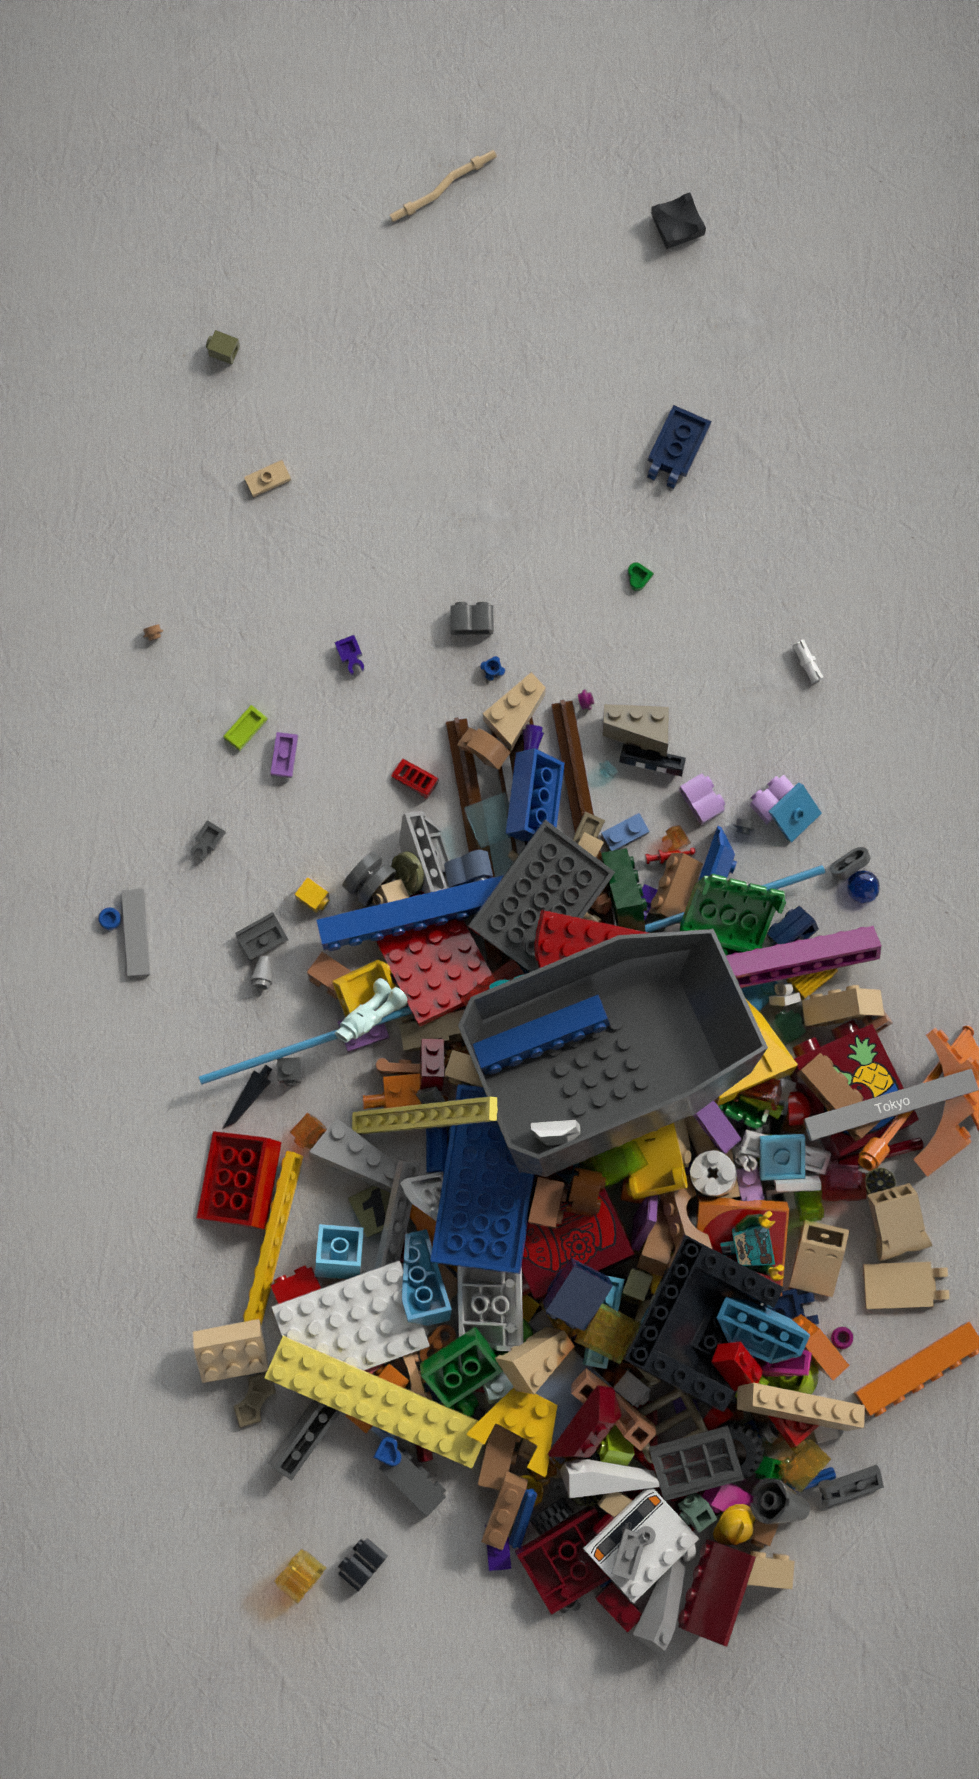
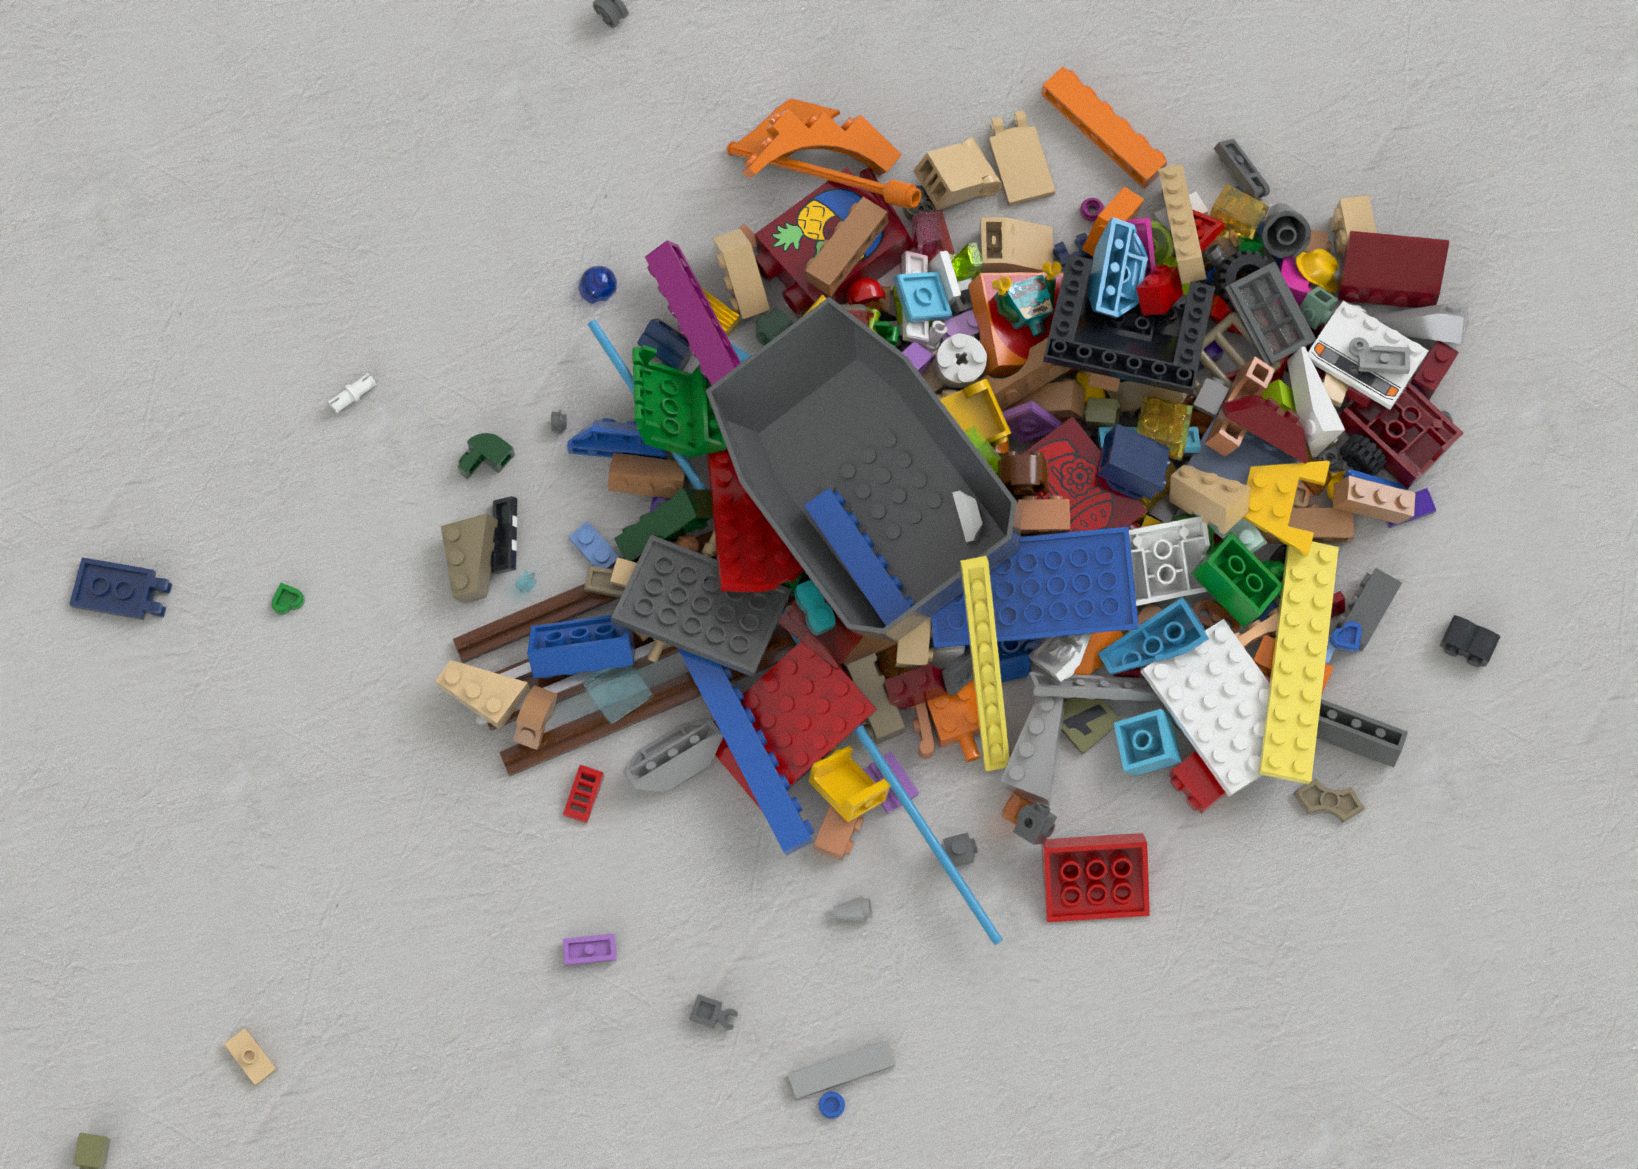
camera: 105 degrees left, 5 degrees down
(152, 632) = (472, 1144): medium nougat plate -> none
(230, 1351) = (1288, 833): tan brick -> none
(245, 728) = (566, 1005): lime tile -> none
(252, 1090) = (990, 889): black bar -> none
(261, 936) = (811, 921): dark grey plate -> none
(274, 1235) = (1162, 822): yellow plate -> none
(290, 1135) = (1035, 823): none -> dark grey brick
(301, 1576) = (1503, 699): clear yellow brick -> none
(312, 895) = (750, 874): yellow brick -> none
(349, 652) = (447, 905): dark purple plate -> none
(364, 1017) = (886, 771): light aqua piece -> none
(368, 877) = (717, 811): dark grey wheel -> none
(390, 892) = (730, 785): tan brick -> none
(409, 870) = (700, 771): olive tile -> none
(468, 868) = (682, 702): sand blue brick -> none
(471, 619) = (379, 773): dark grey brick -> none
(493, 662) = (425, 736): blue plate -> none
(532, 736) = (512, 665): dark purple cone -> none
(586, 700) = (449, 623): magenta plate -> none
(663, 856) = (613, 502): red piece -> none
(678, 838) = (588, 488): clear orange tile -> none
(702, 798) = (537, 471): lavender brick -> none
(732, 761) = (487, 449): none -> dark green brick
(765, 800) = (520, 394): lavender brick -> none
(784, 995) = (744, 337): white tile -> none
(795, 812) = (531, 368): dark azure plate -> none
(850, 863) = (576, 303): dark grey plate -> none
(890, 1104) = (844, 189): light grey tile -> none

